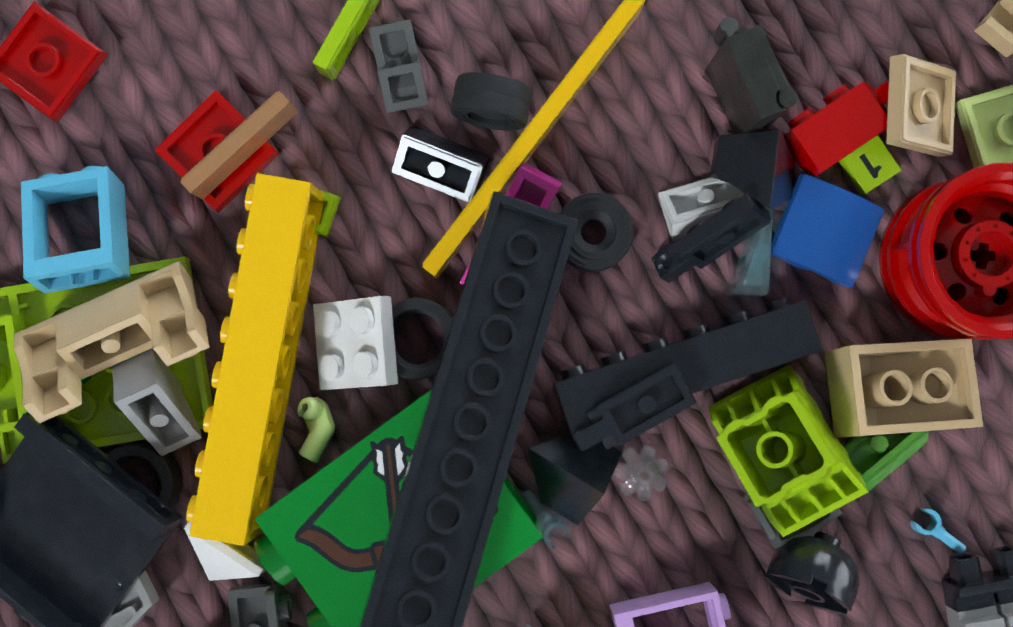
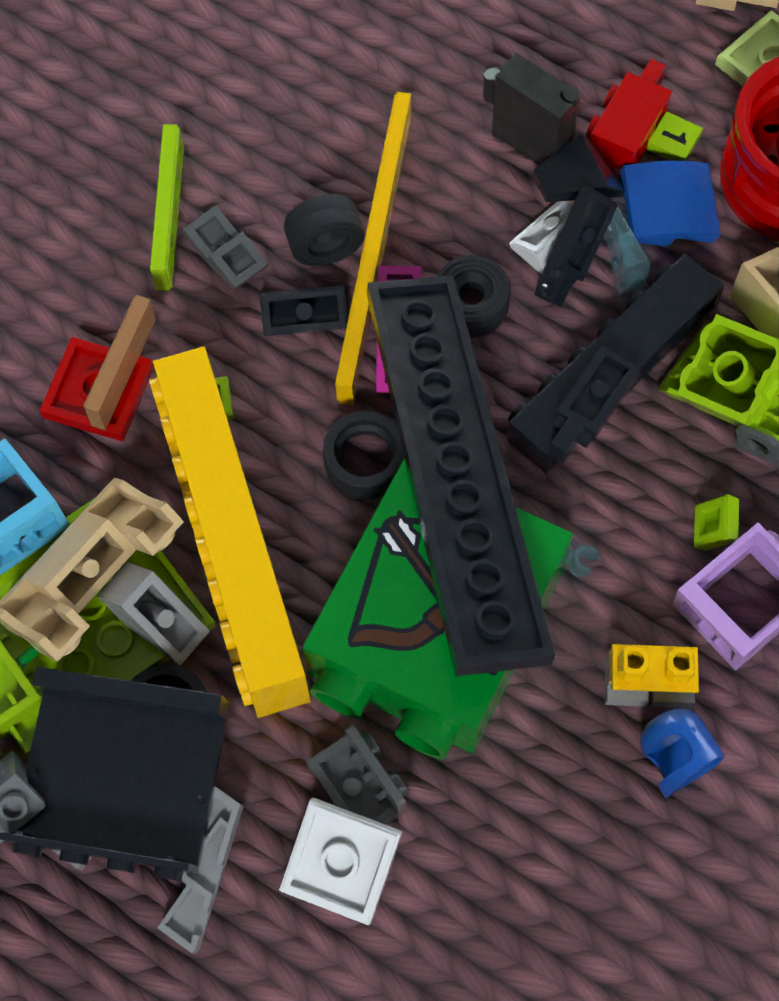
camera: 25 degrees left, 20 degrees down
(225, 559) = (284, 734): white slope -> none
(320, 425) = (312, 575): yellowish green arm -> none
(355, 343) = (310, 481): white plate -> none
(572, 479) = (570, 498): black slope -> none
(635, 466) = (632, 474): clear plant -> none
(685, 562) = (716, 522): none -> lime tile
(921, 106) = (687, 71): tan tile -> none

